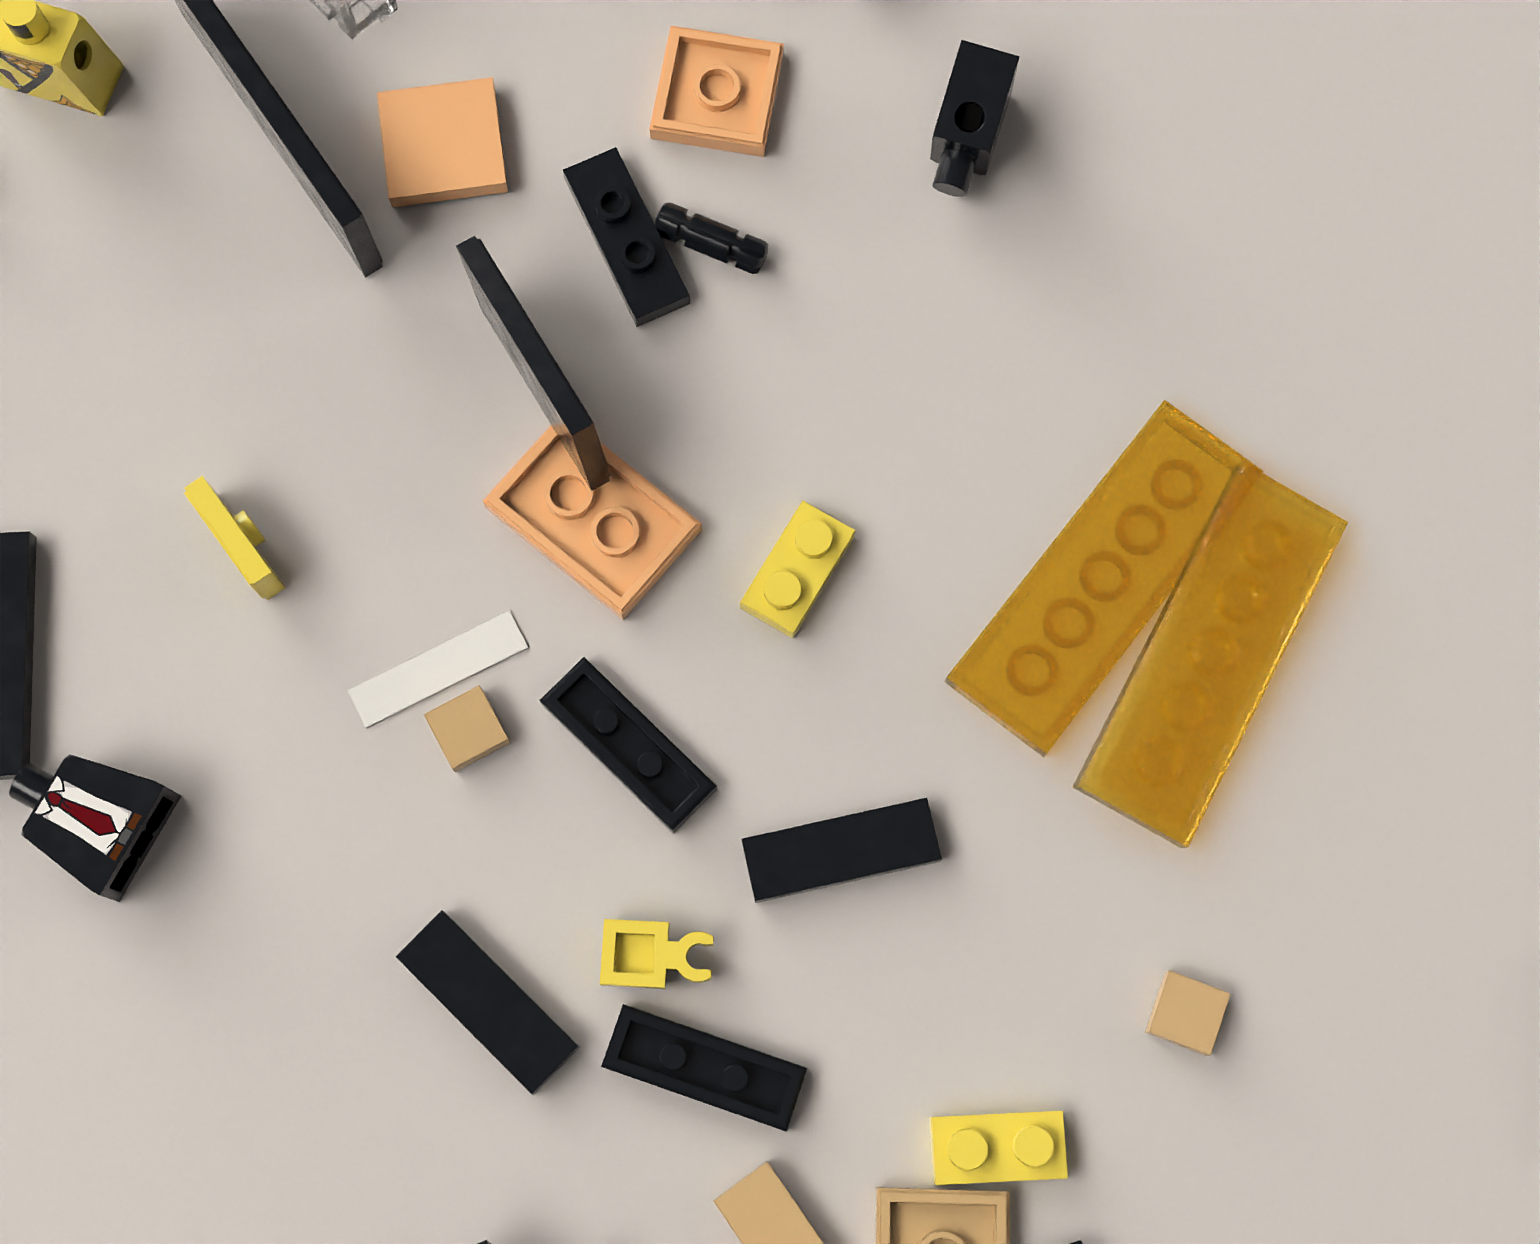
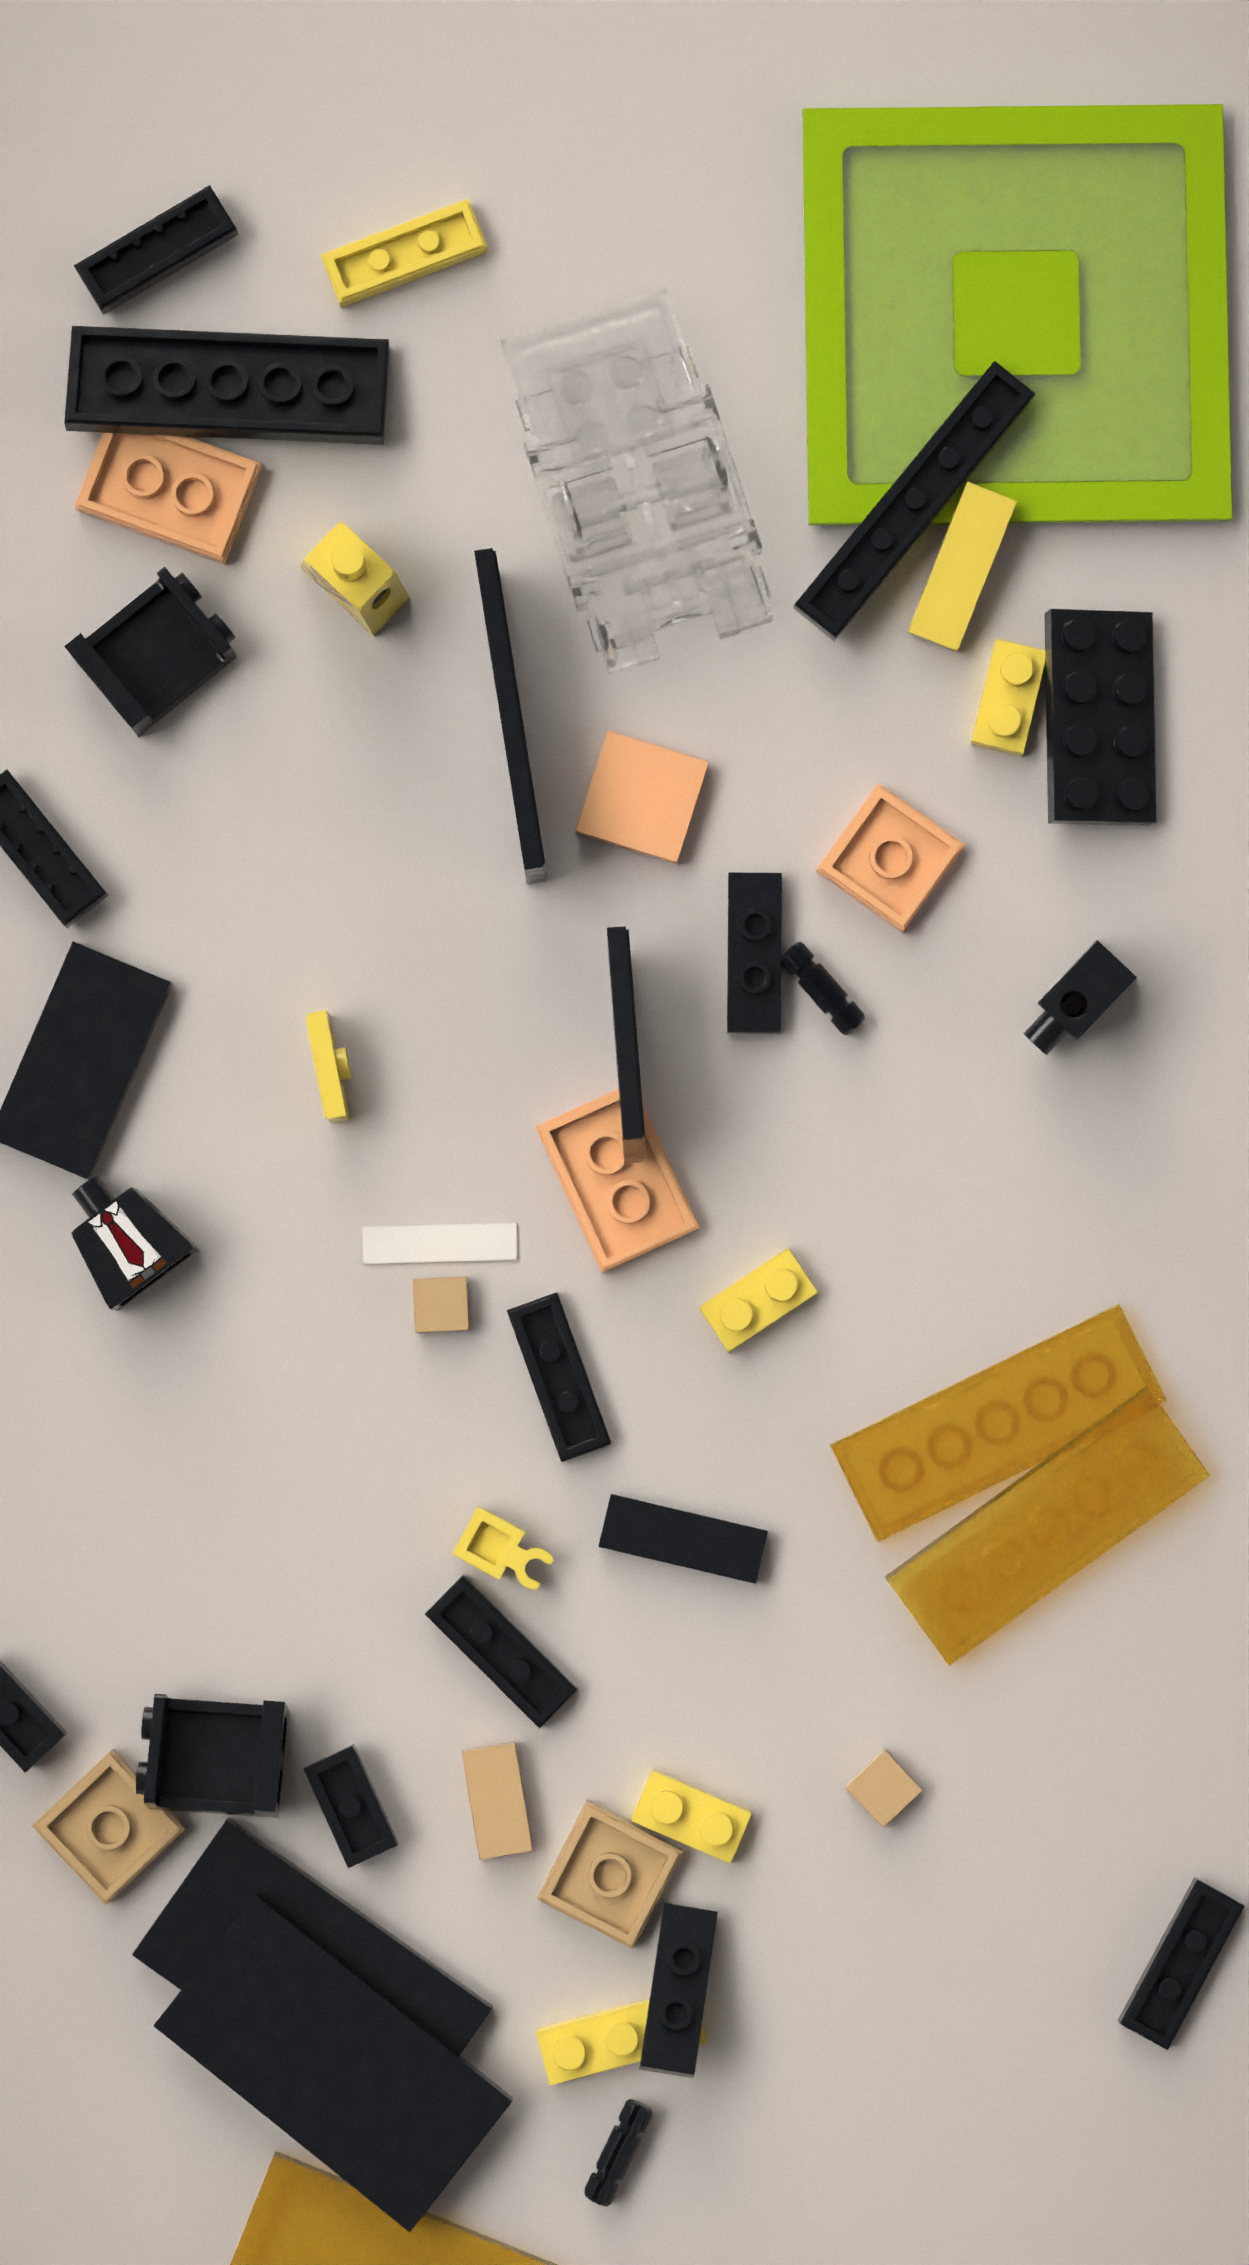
camera: 25 degrees right, 10 degrees up
(487, 1002) = (362, 1524): black tile -> none

